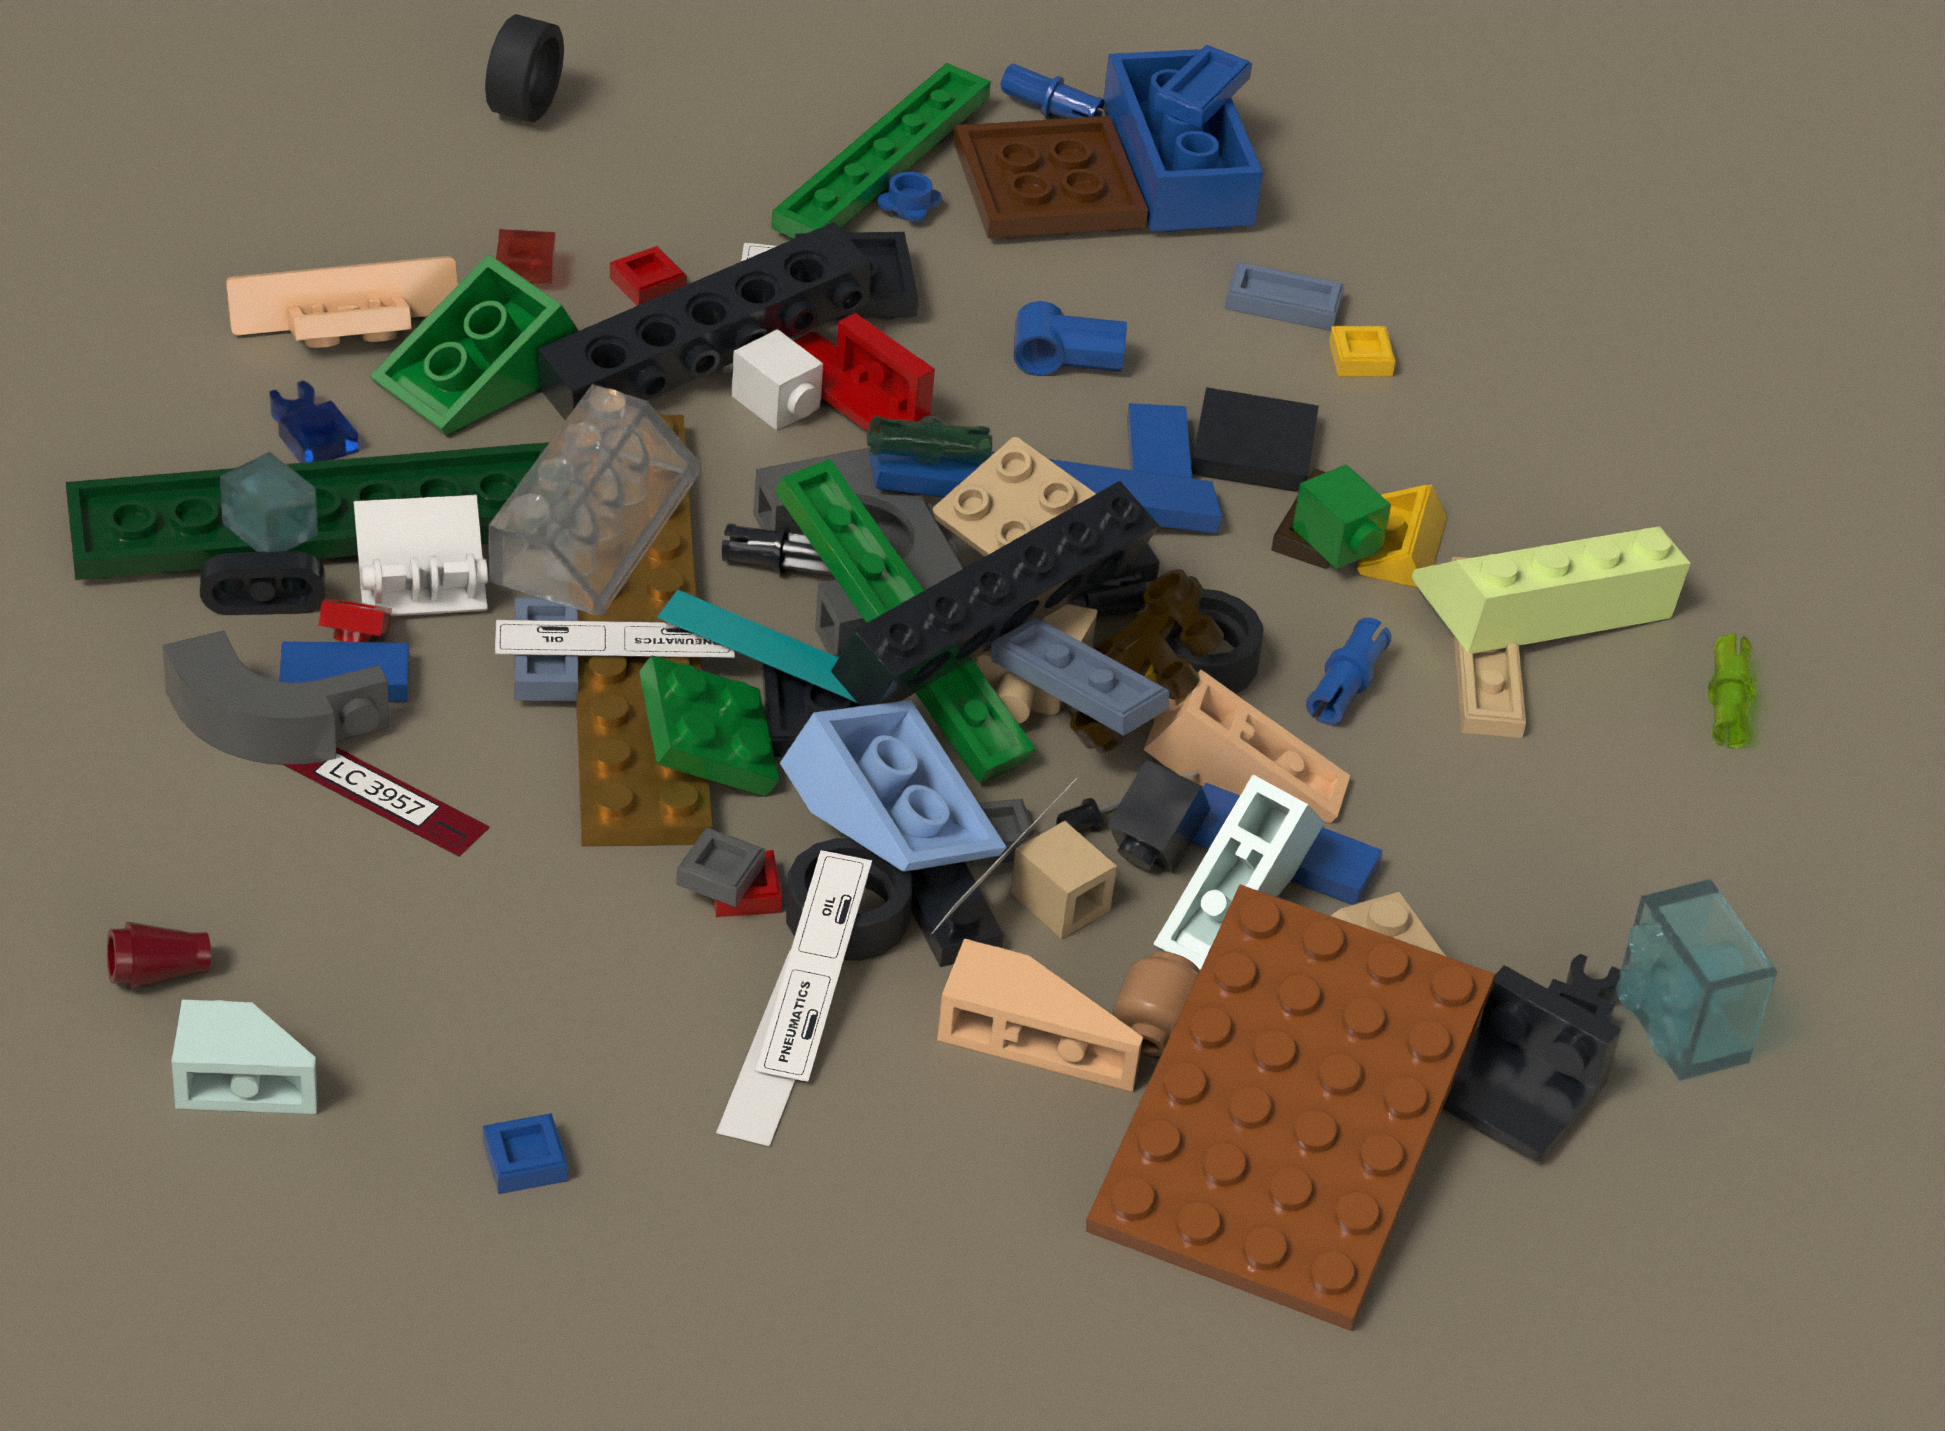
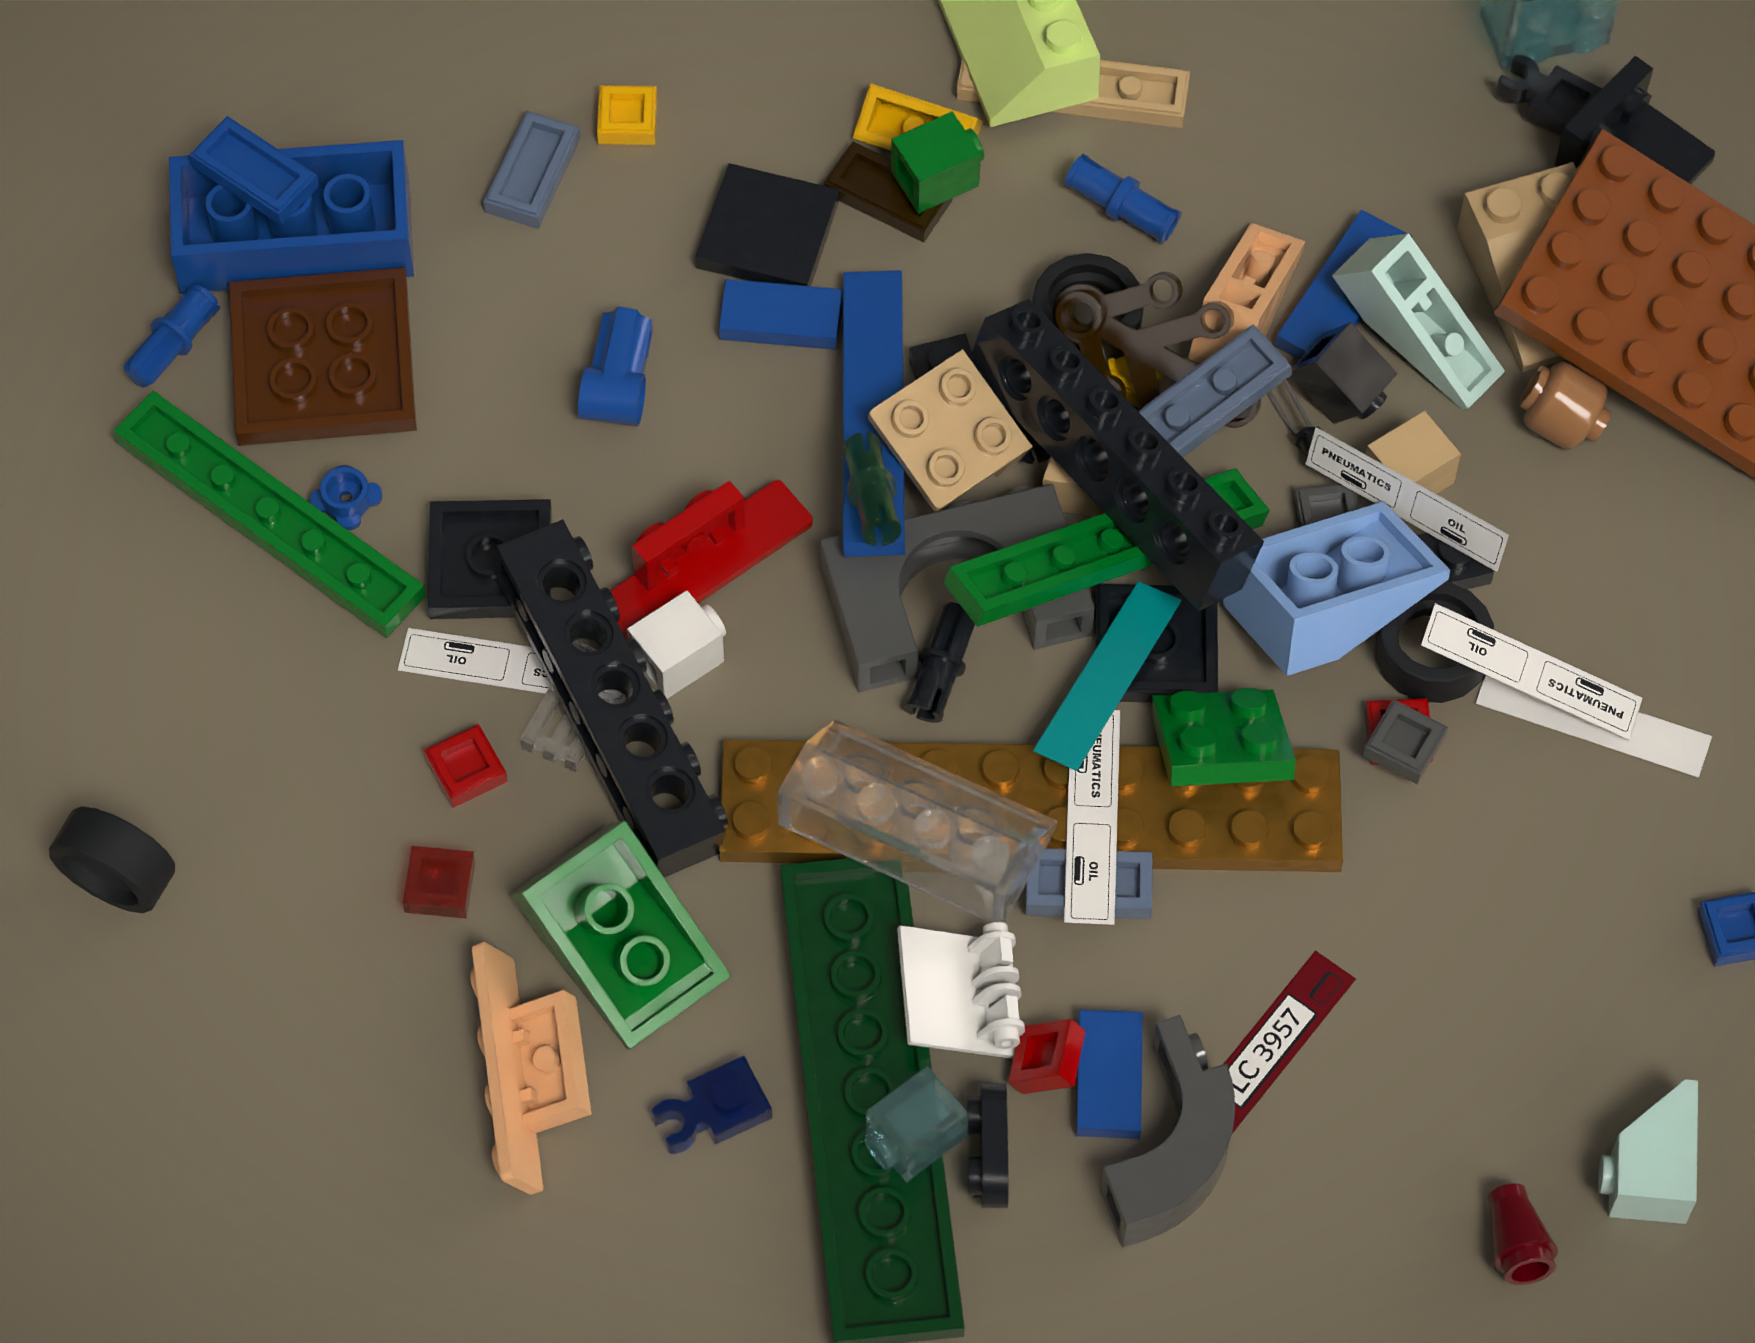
camera: 80 degrees left, 20 degrees up
(1029, 1015) = (1573, 513): light nougat slope -> none

